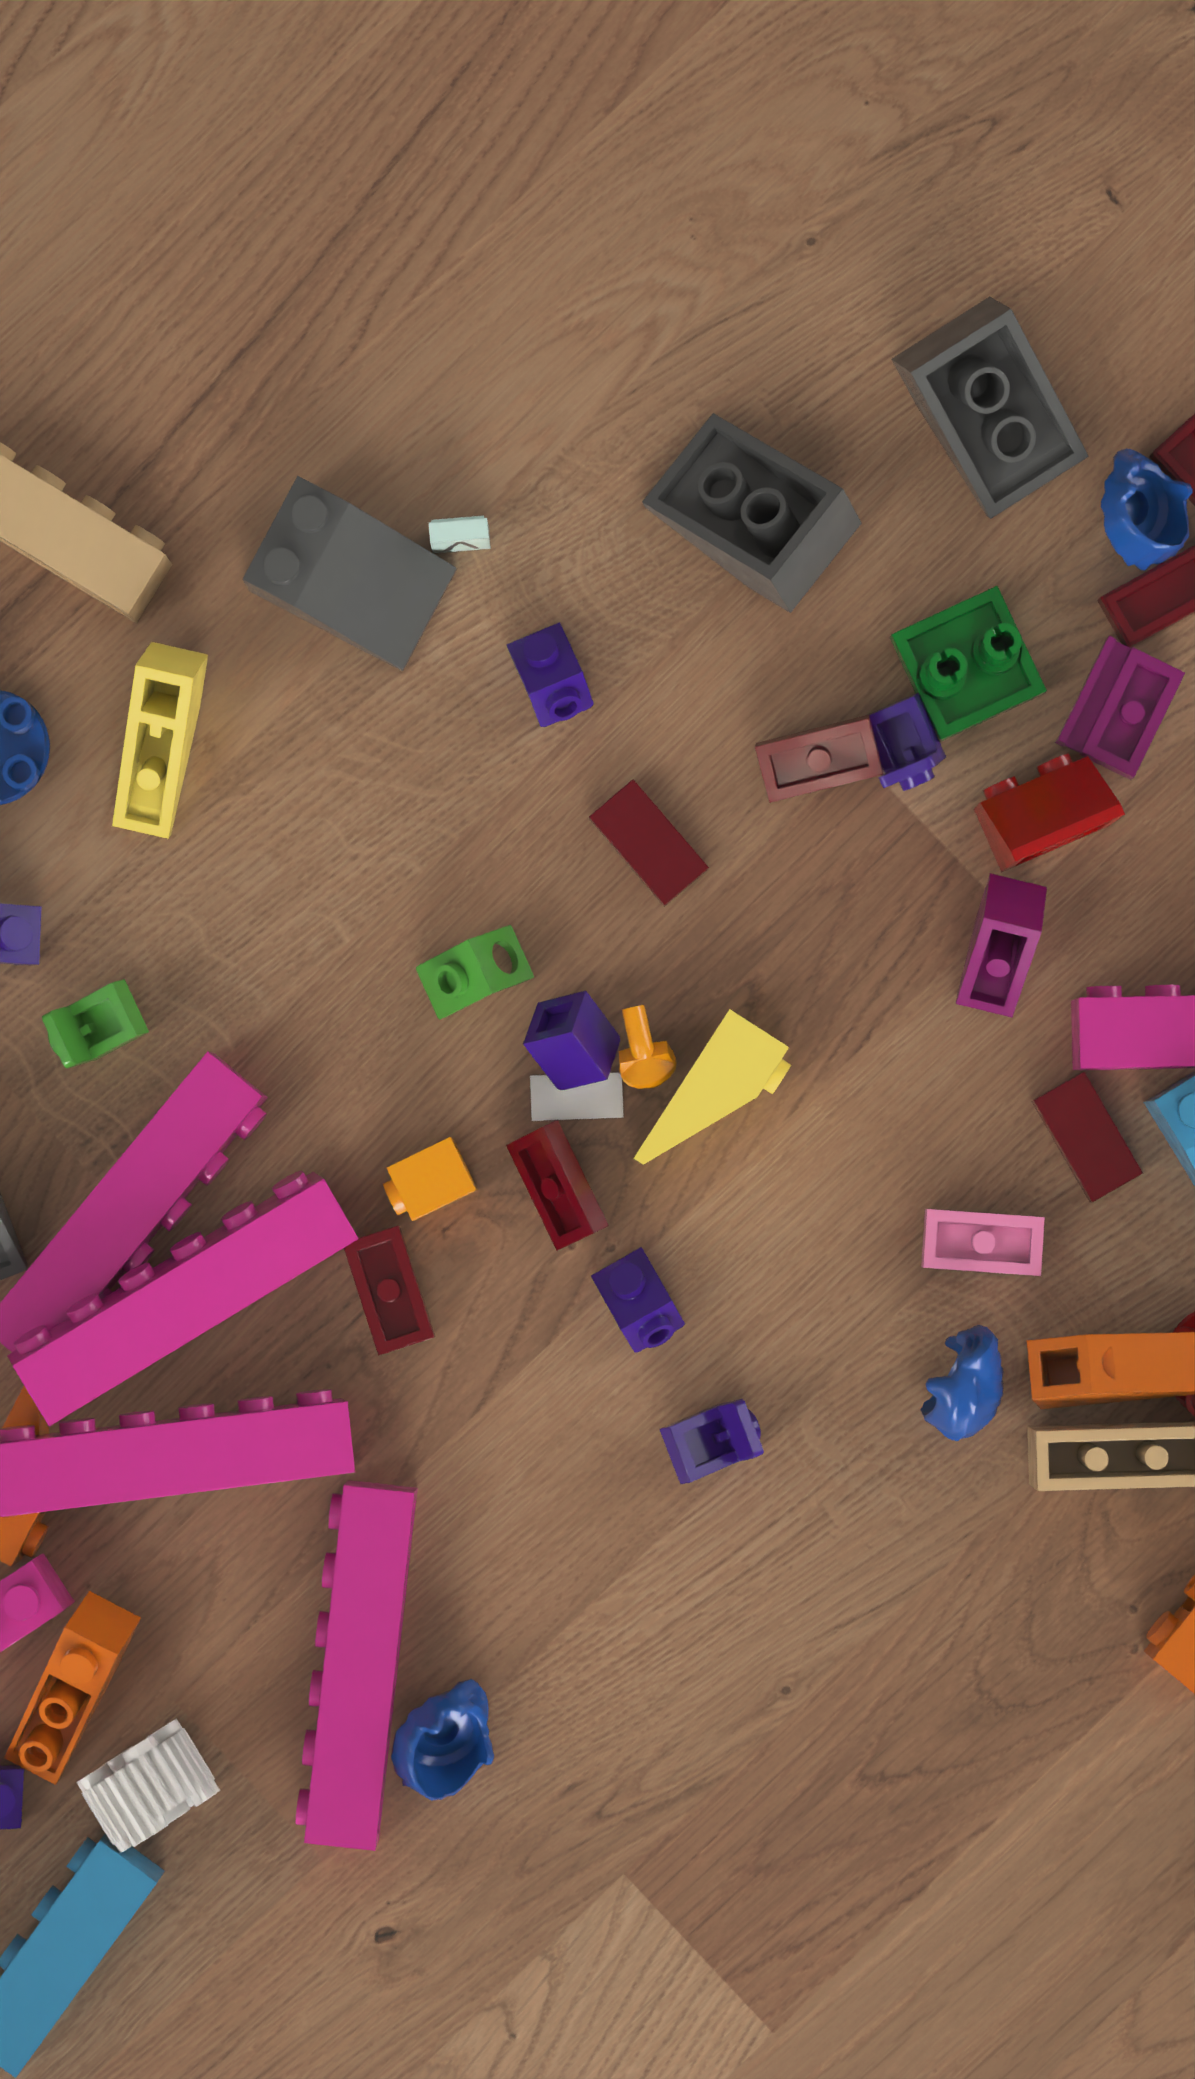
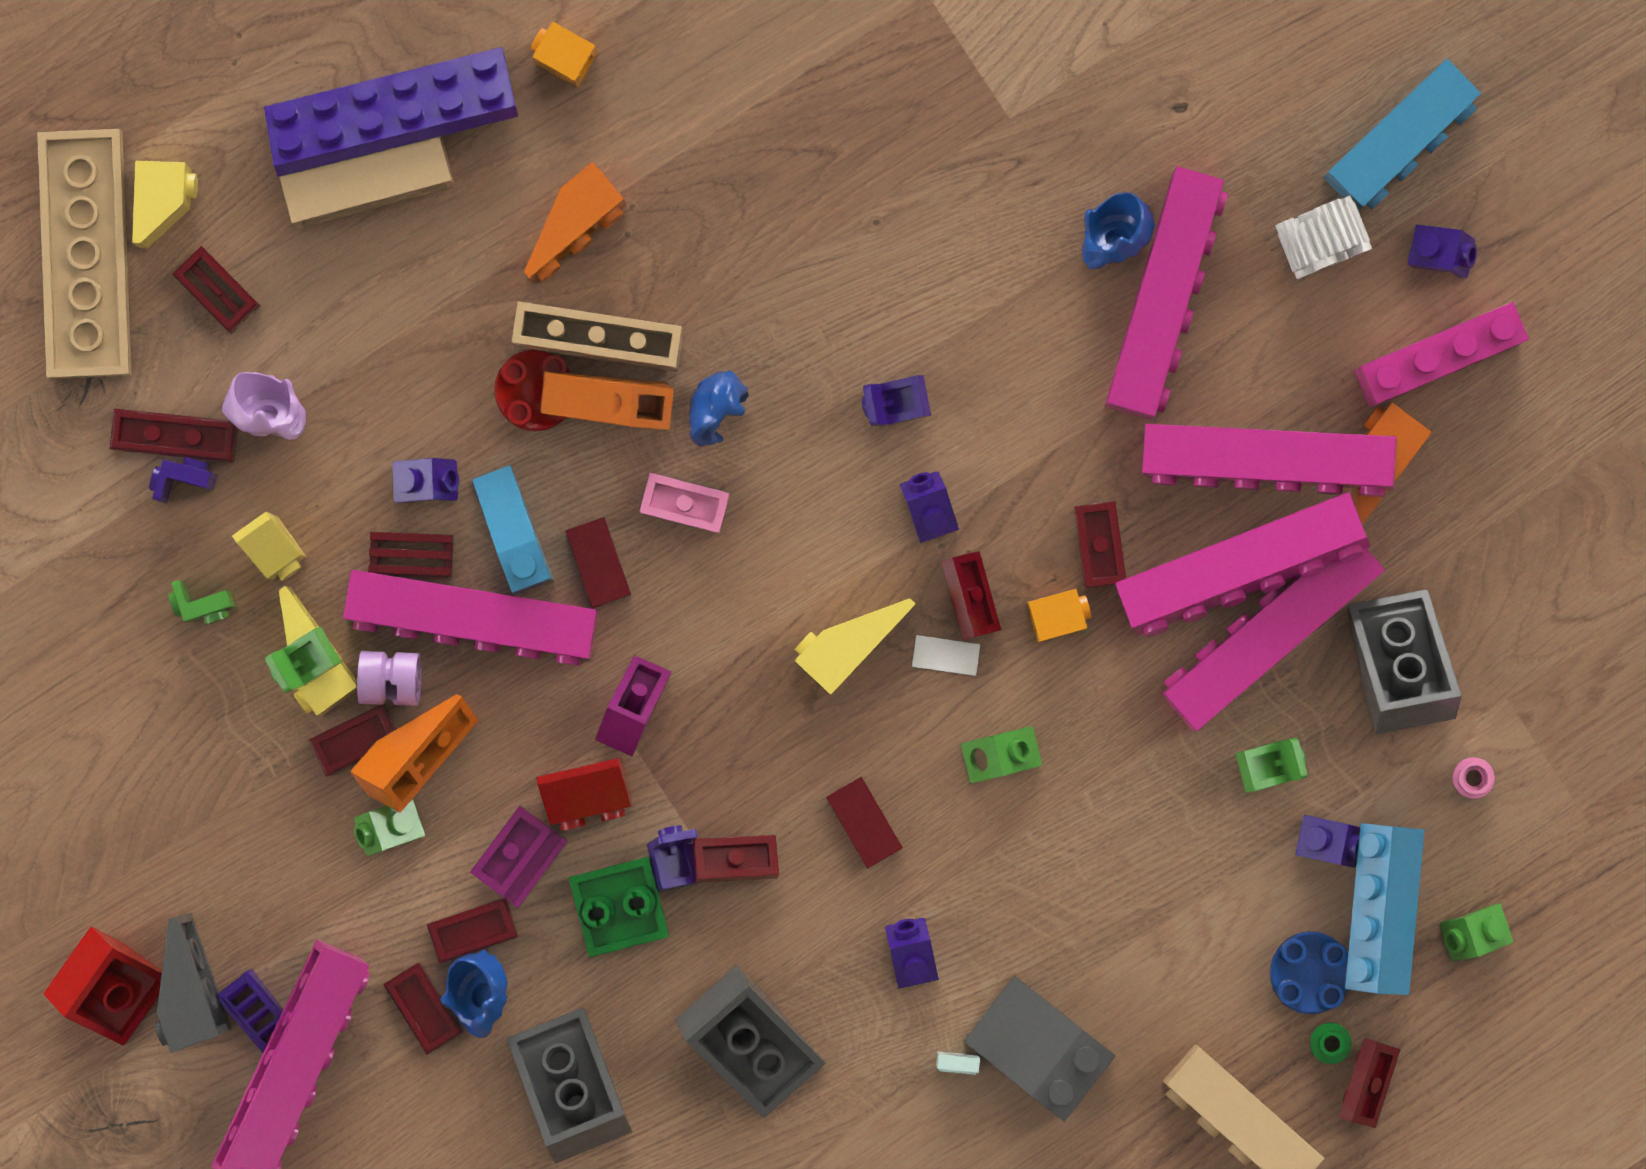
camera: 175 degrees left, 0 degrees up
(72, 1686) = (1364, 313): orange slope -> none
(158, 738) = (1193, 957): light yellow slope -> none
(572, 1041) = (942, 693): dark purple panel -> none
(645, 1062) = (894, 669): light orange plate -> none

